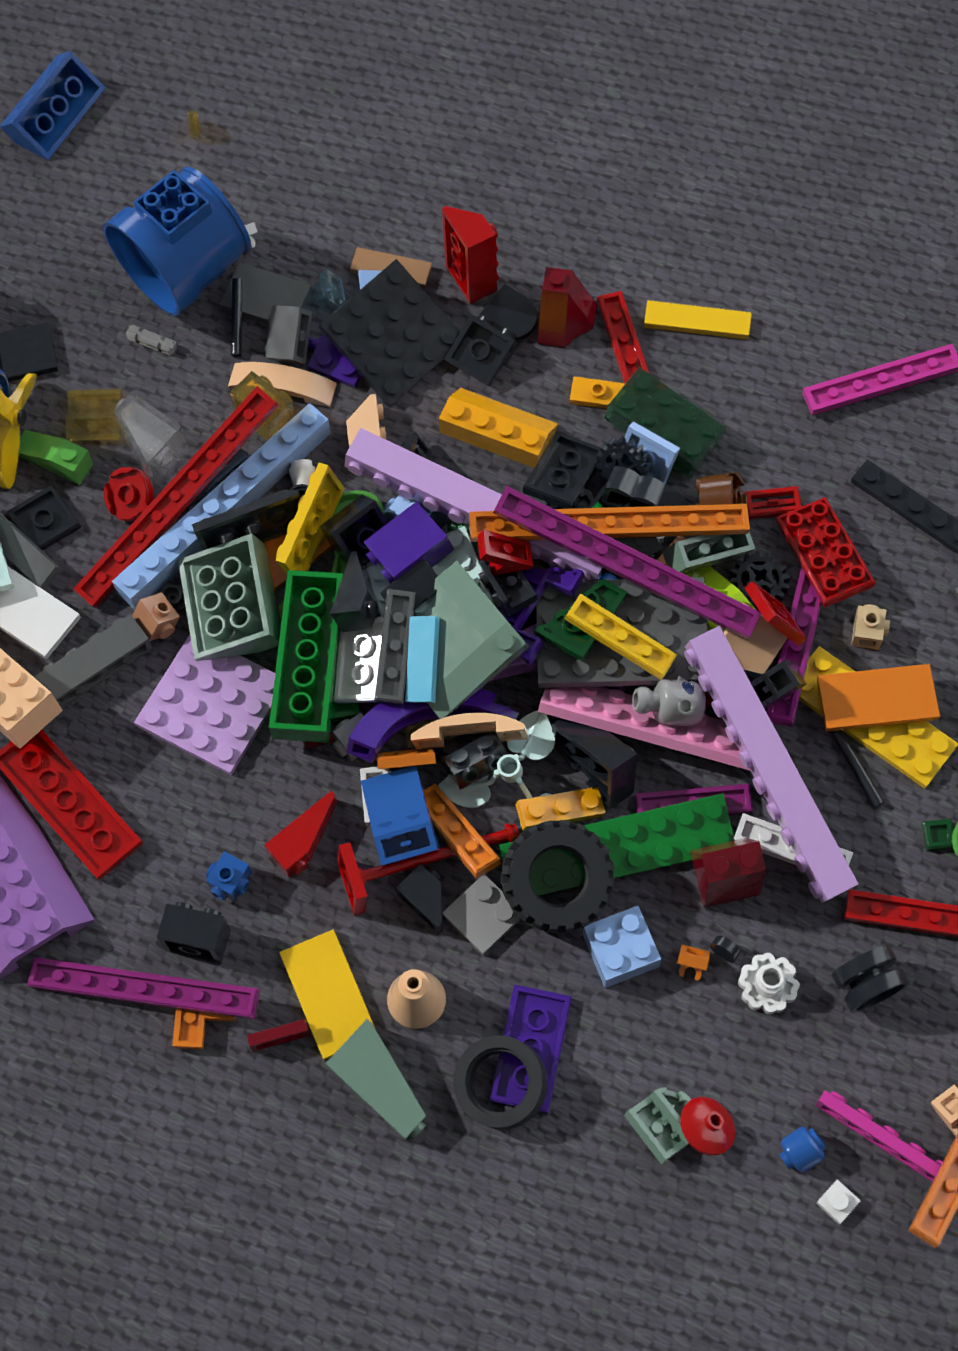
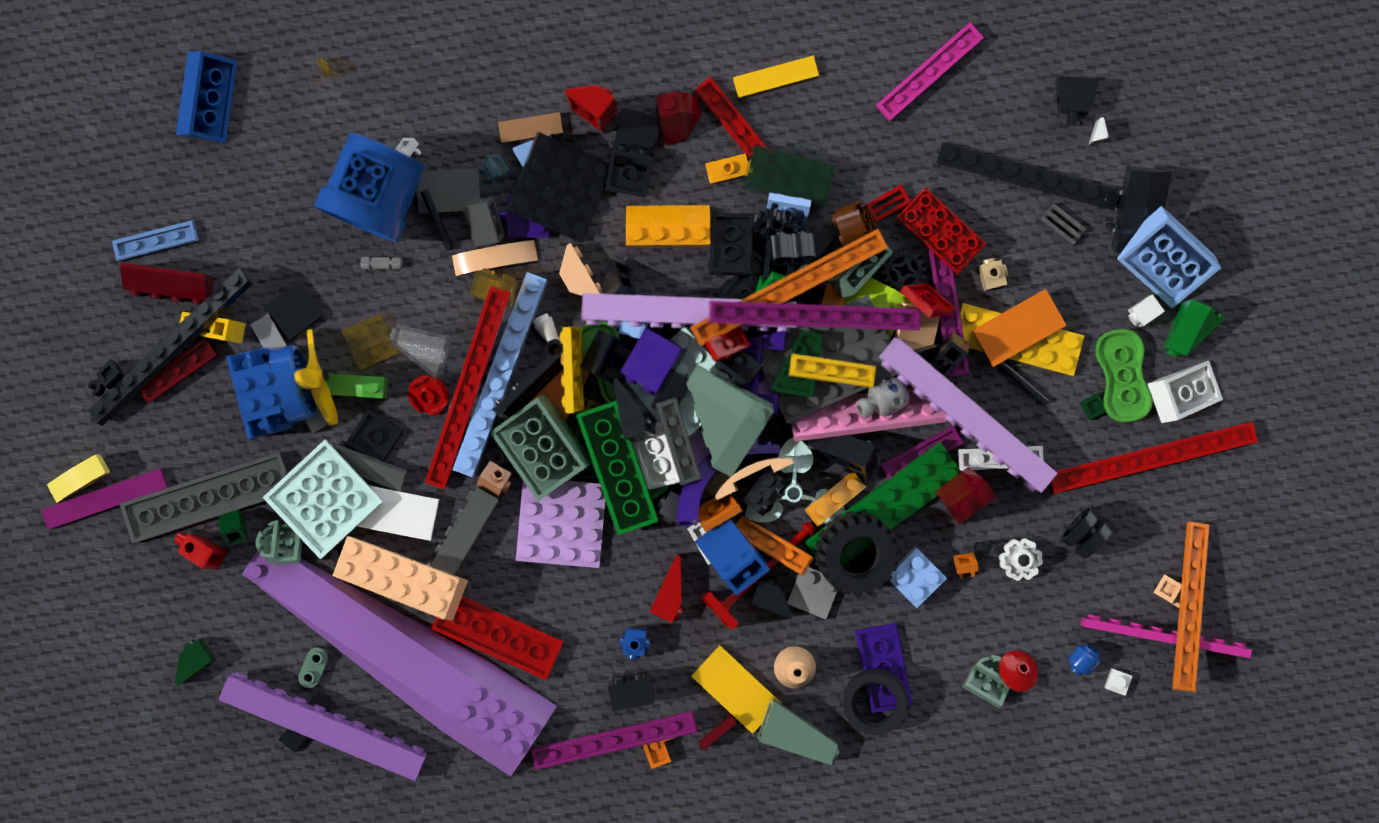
camera: 25 degrees left, 20 degrees up
(422, 659) = (702, 443): medium azure tile -> none

